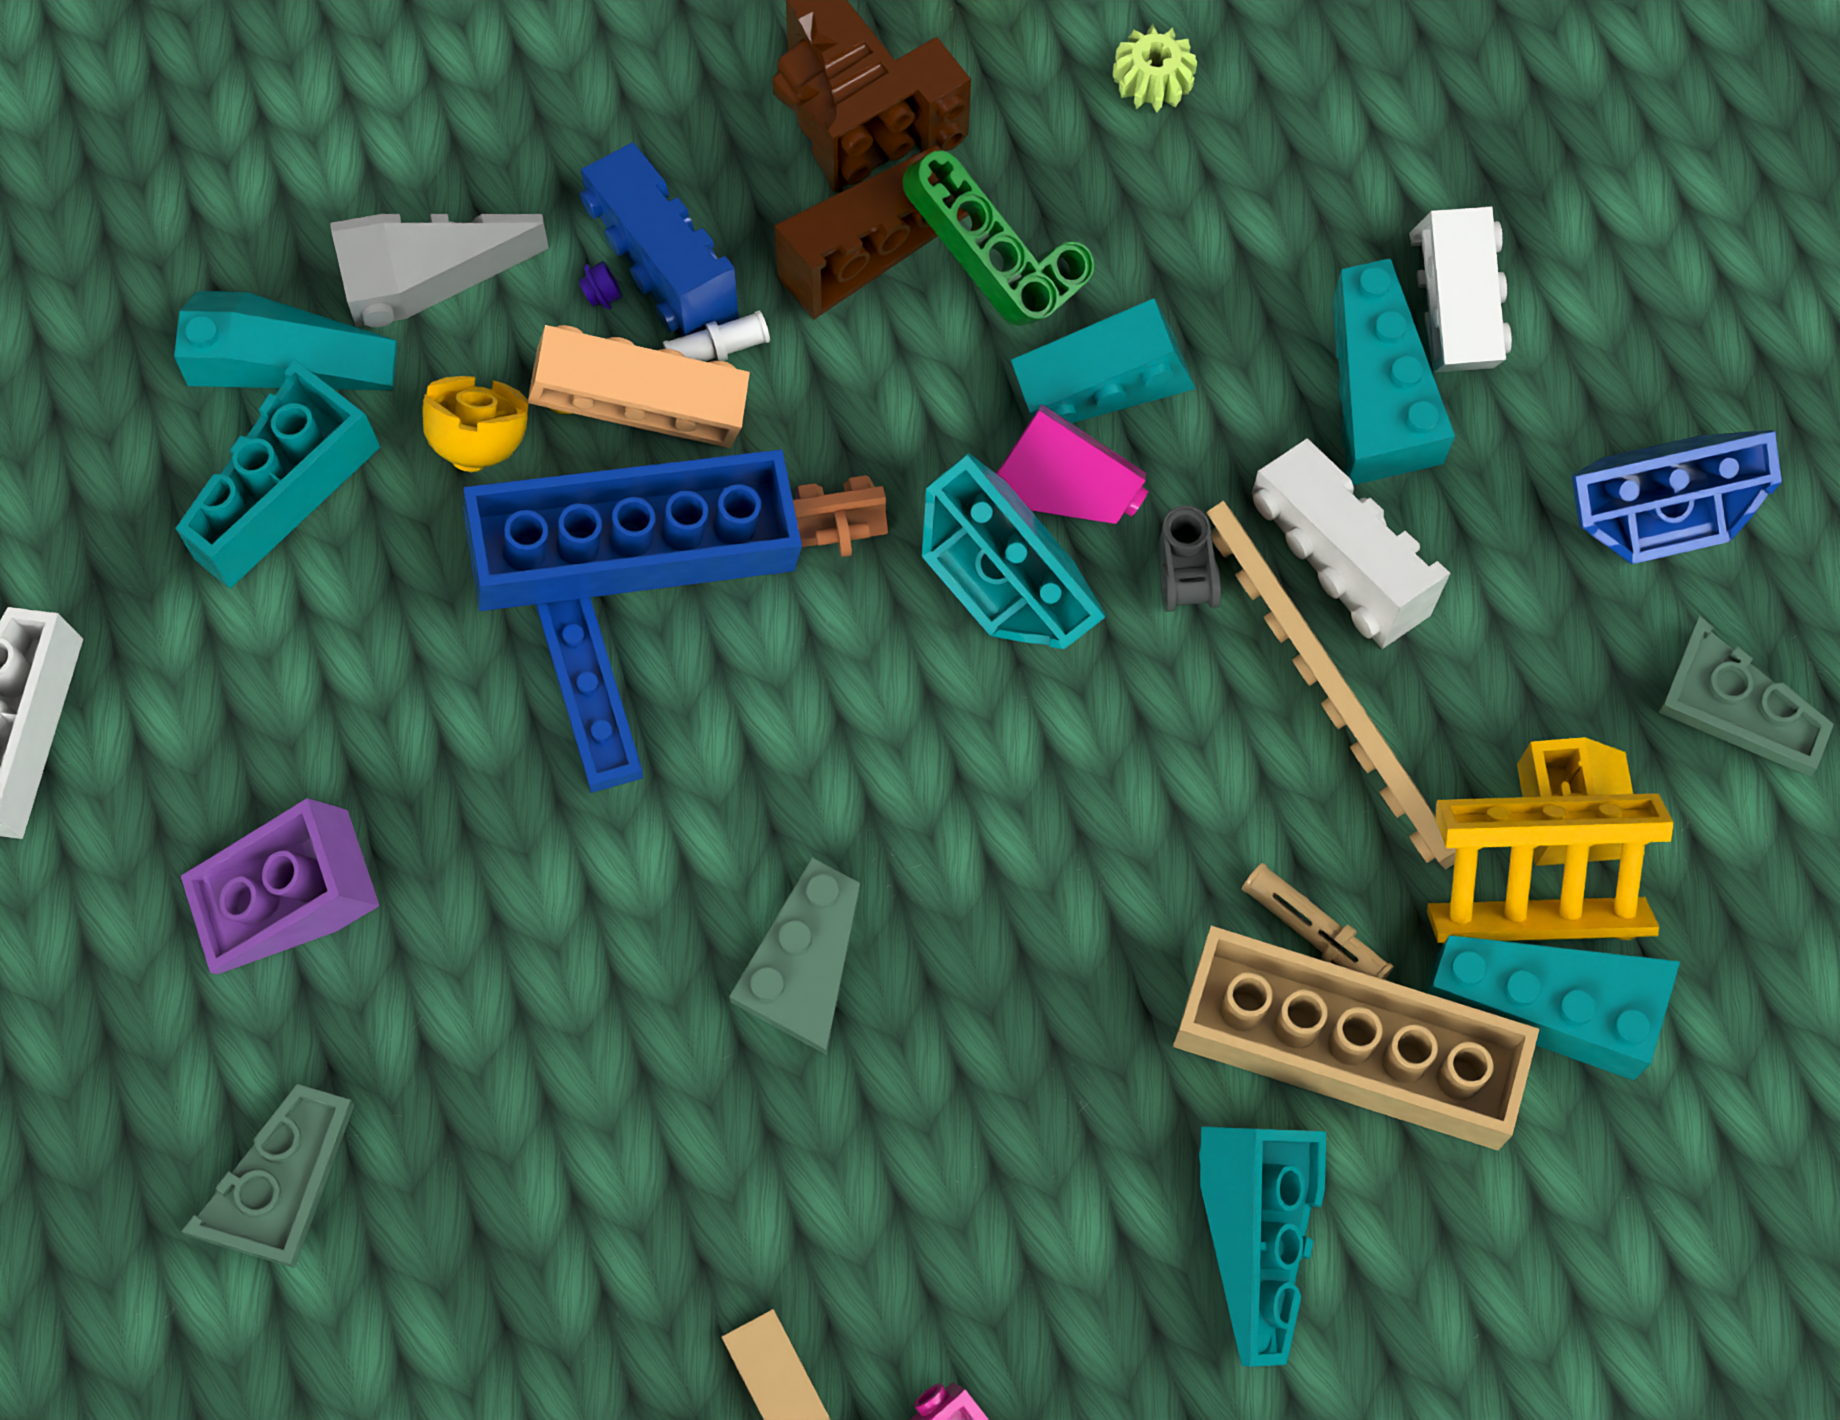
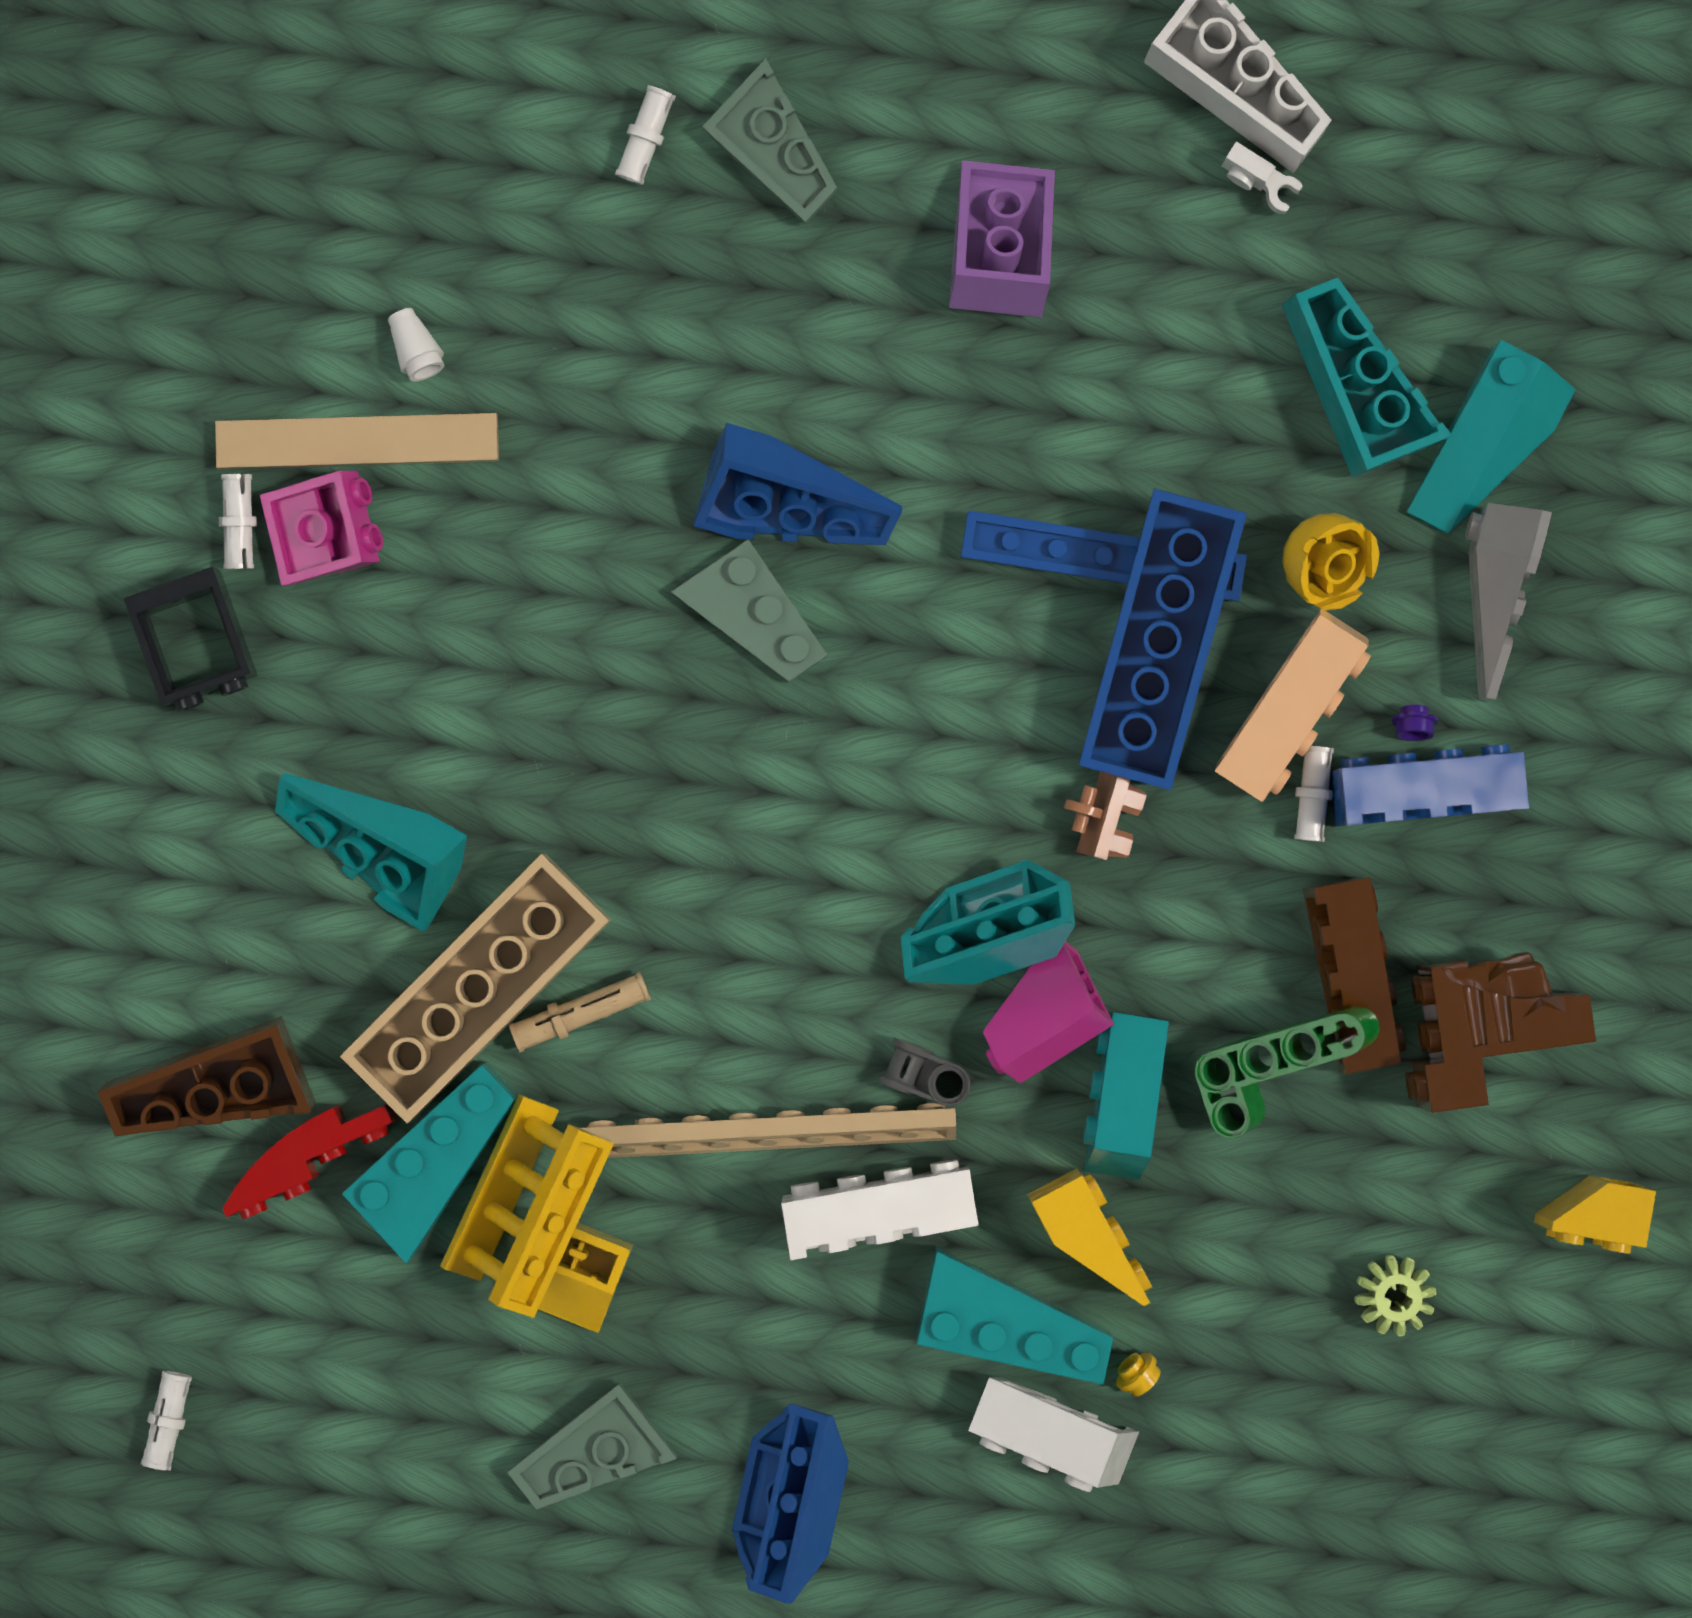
camera: 120 degrees right, 20 degrees up
(96, 674) = (1251, 170): none -> white plate
(327, 1326) = (645, 135): none -> white pin
(659, 995) = (775, 489): none -> blue wedge
(1249, 350) = (1077, 1226): none -> yellow slope
(1357, 246) = (1138, 1373): none -> yellow plate
(1620, 1275) = (222, 1081): none -> reddish brown wedge
(1649, 1150) = (290, 1163): none -> red slope

